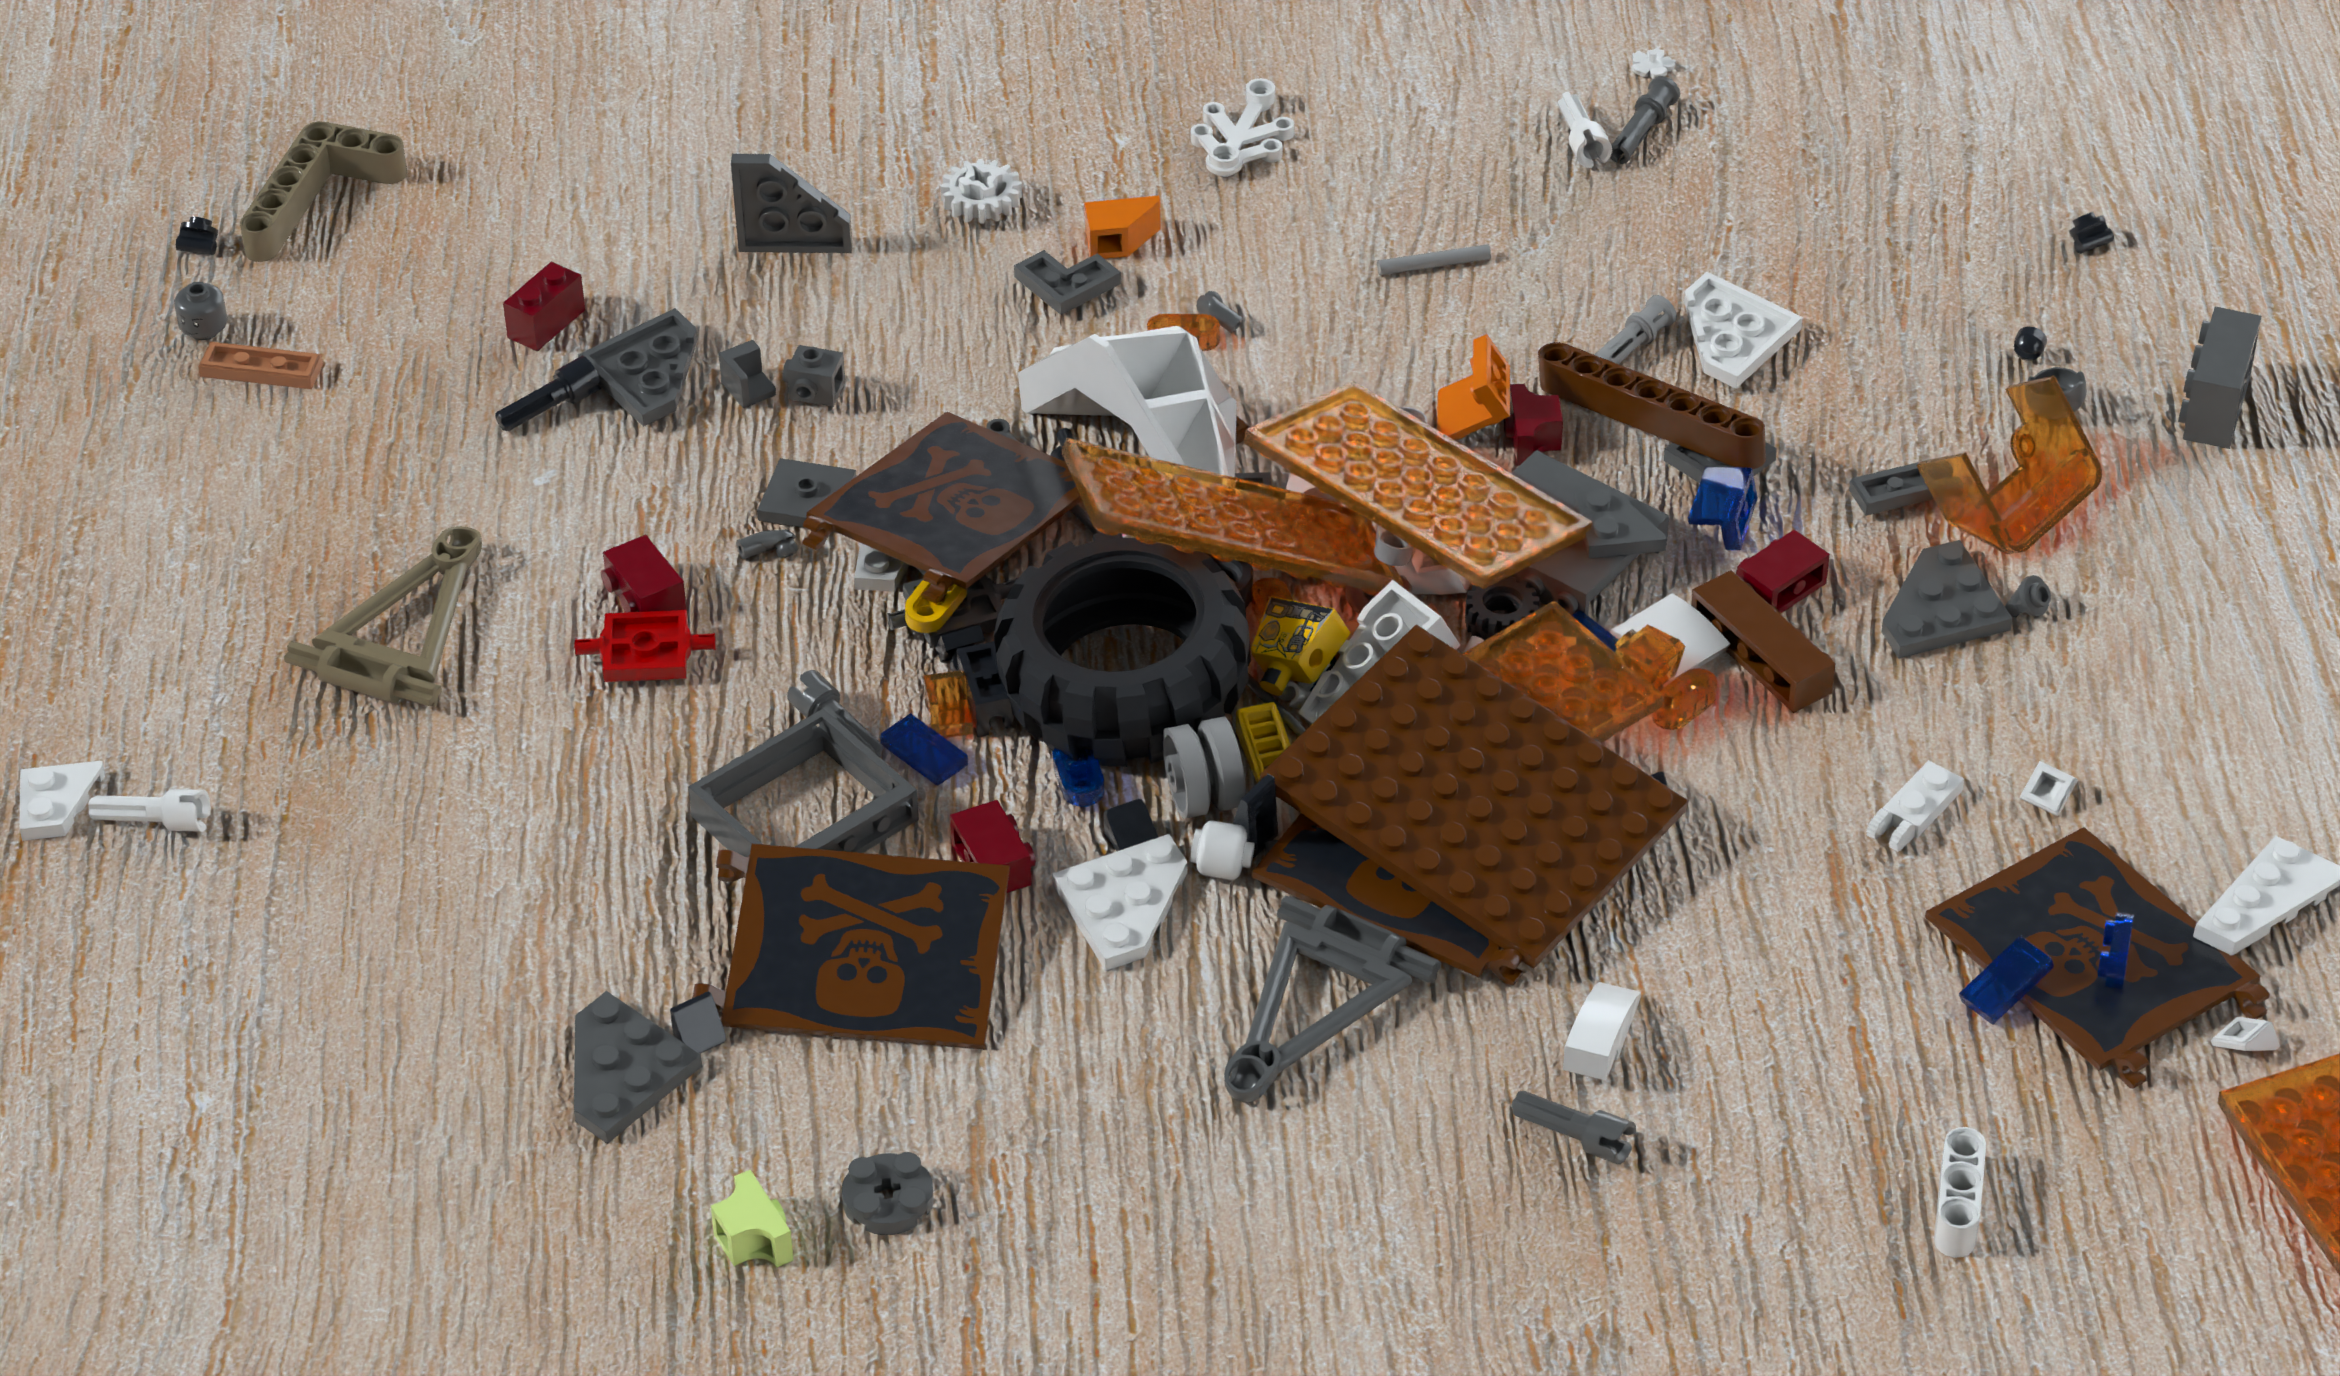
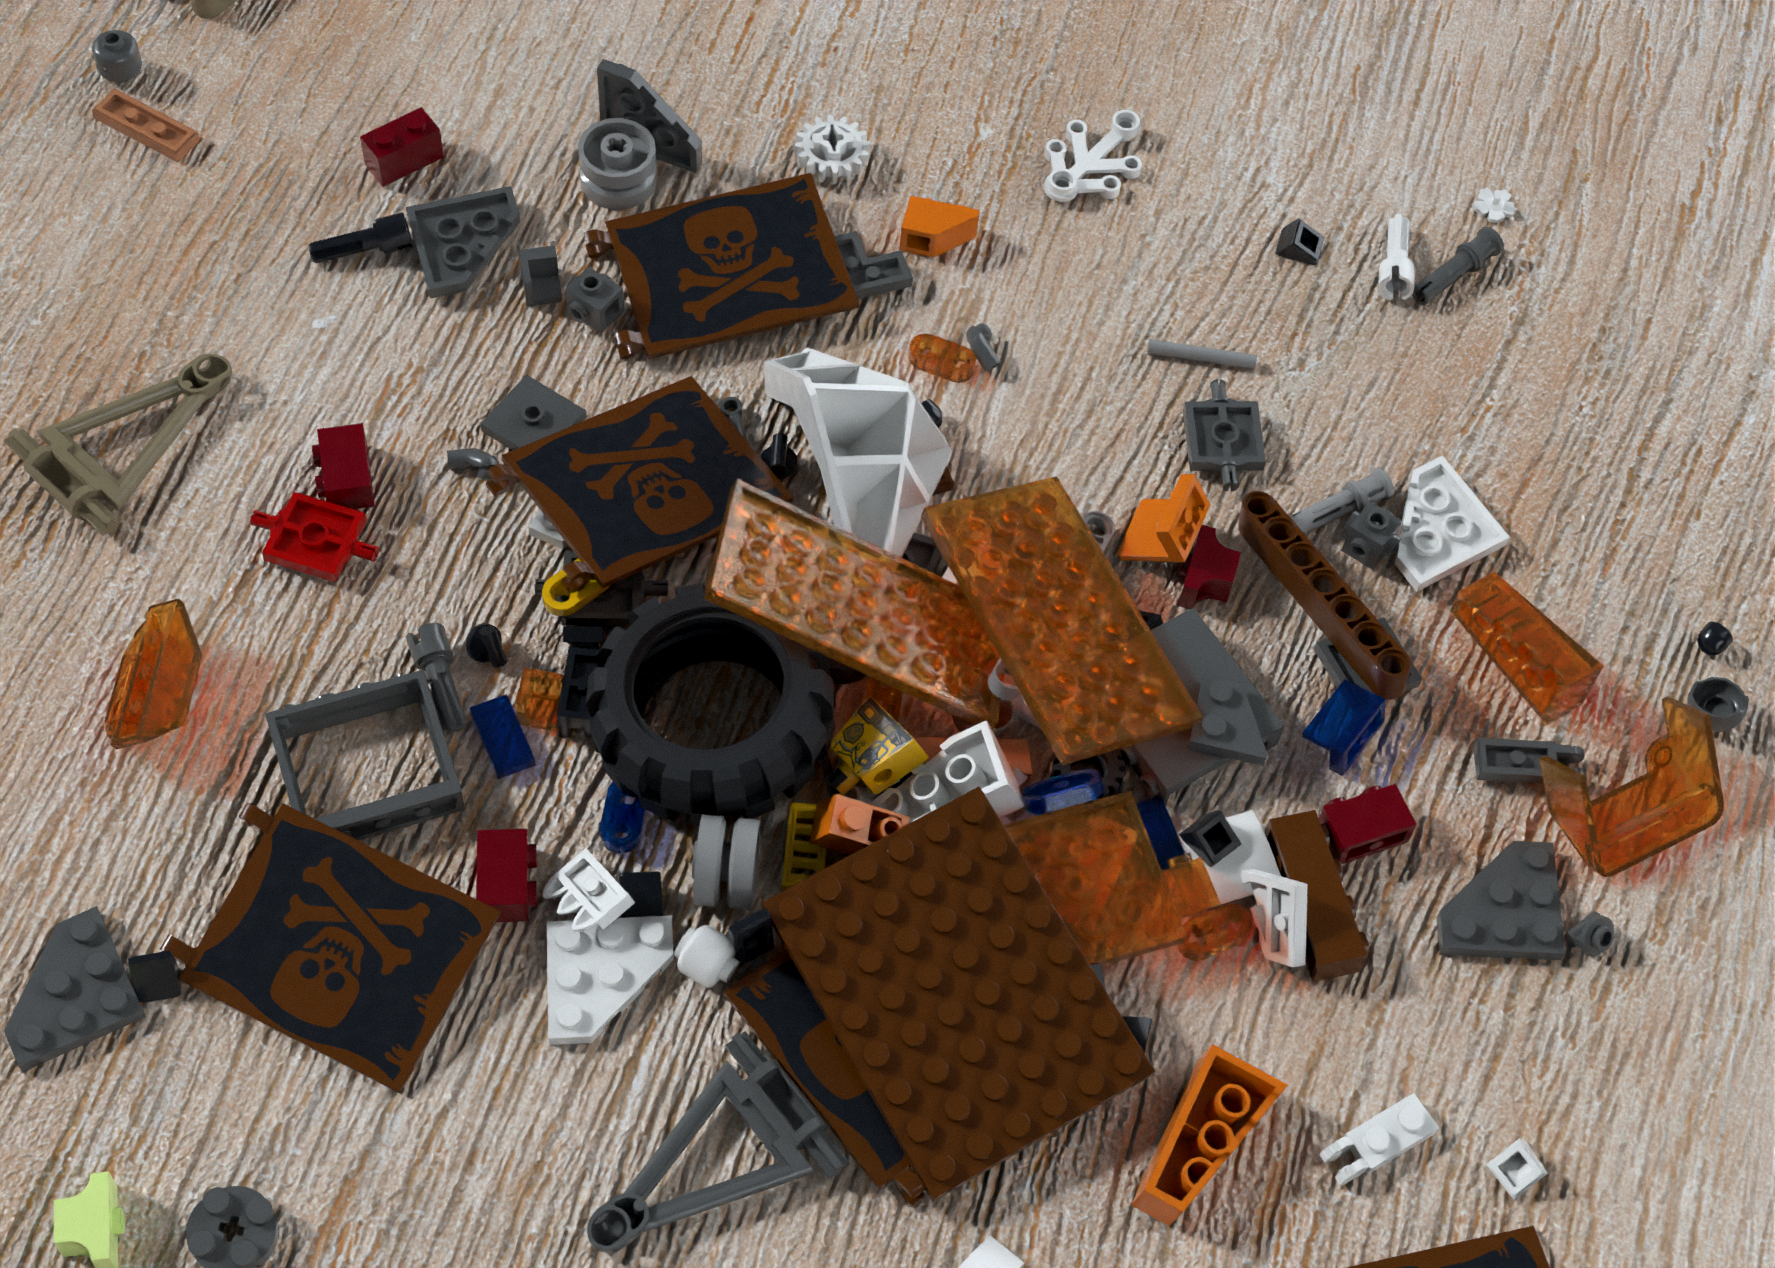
camera: 15 degrees right, 15 degrees up
(554, 793) = (154, 677): none -> clear orange wedge
(773, 259) = (617, 163): none -> light grey wheel
(869, 680) = (485, 645): none -> black plate
(929, 314) = (726, 266): none -> flag
(1082, 832) = (589, 891): none -> white plate
(1300, 701) = (852, 825): none -> orange slope
(1480, 144) = (1300, 243): none -> black slope
(1491, 310) = (1224, 435): none -> dark grey plate
(1491, 620) = (1063, 791): none -> clear blue plate
(1645, 612) = (1211, 837): none -> black slope
(1673, 344) = (1371, 535): none -> dark grey brick
(1739, 658) = (1279, 916): none -> white wing
(1754, 833) = (1209, 1122): none -> orange wedge
(1862, 395) = (1527, 647): none -> clear orange wedge

